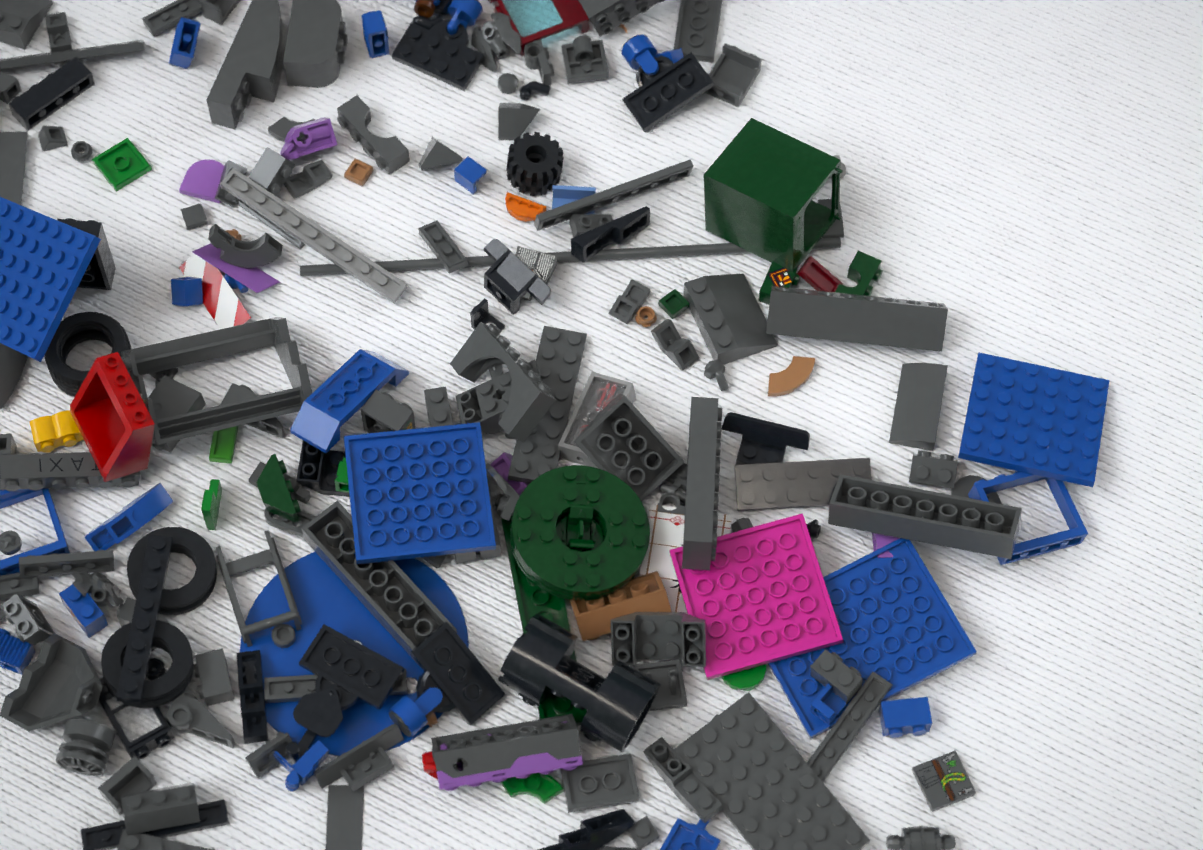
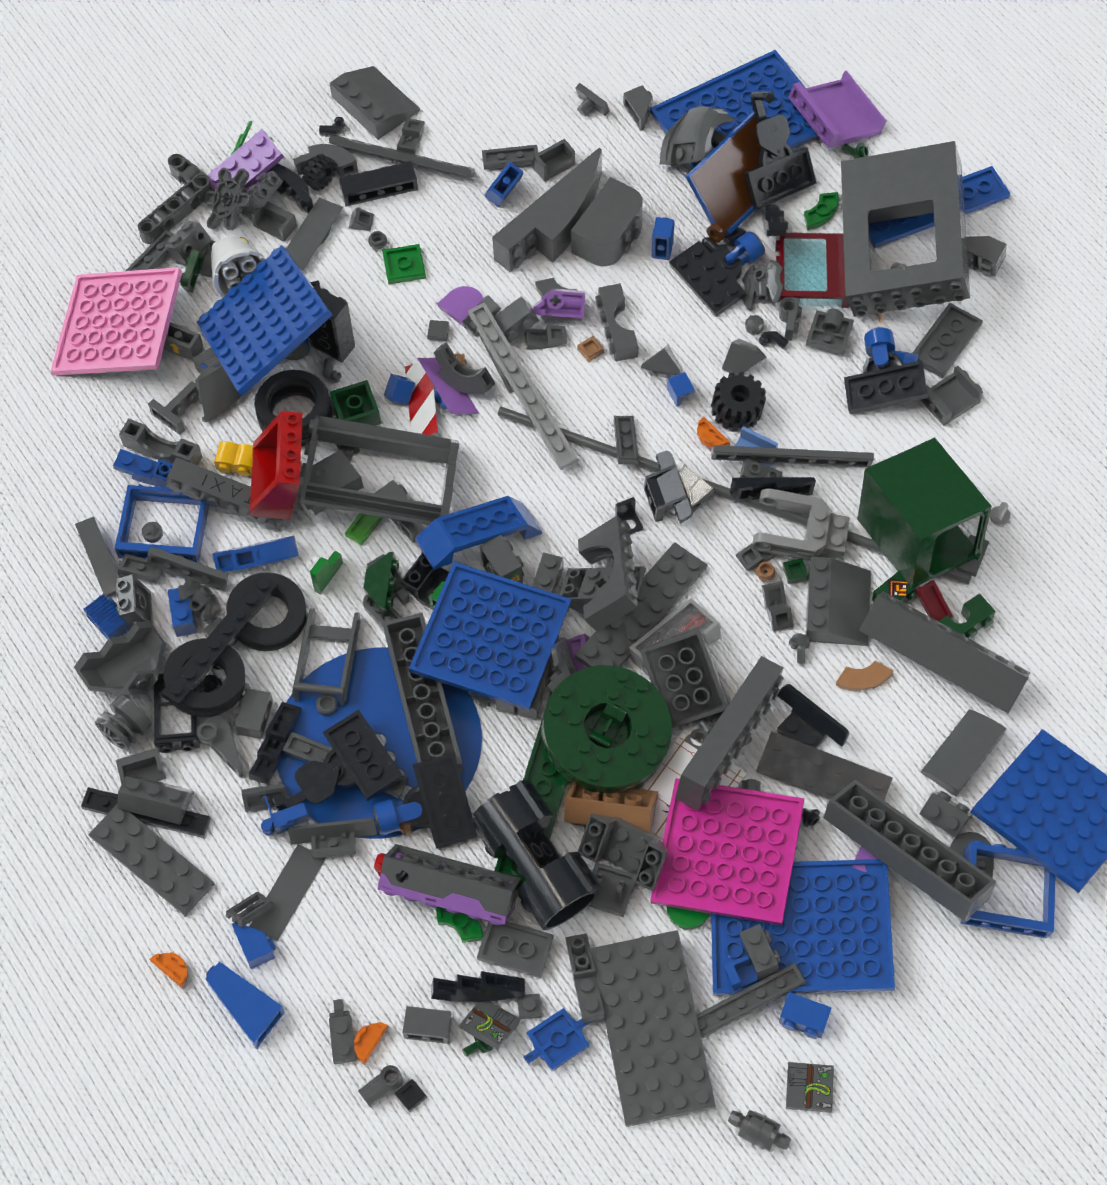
camera: 30 degrees right, 0 degrees up
(103, 305) = (328, 372): none -> dark grey arm
(152, 324) = (356, 404): none -> dark green brick
(682, 254) = (823, 533): none -> light grey plate

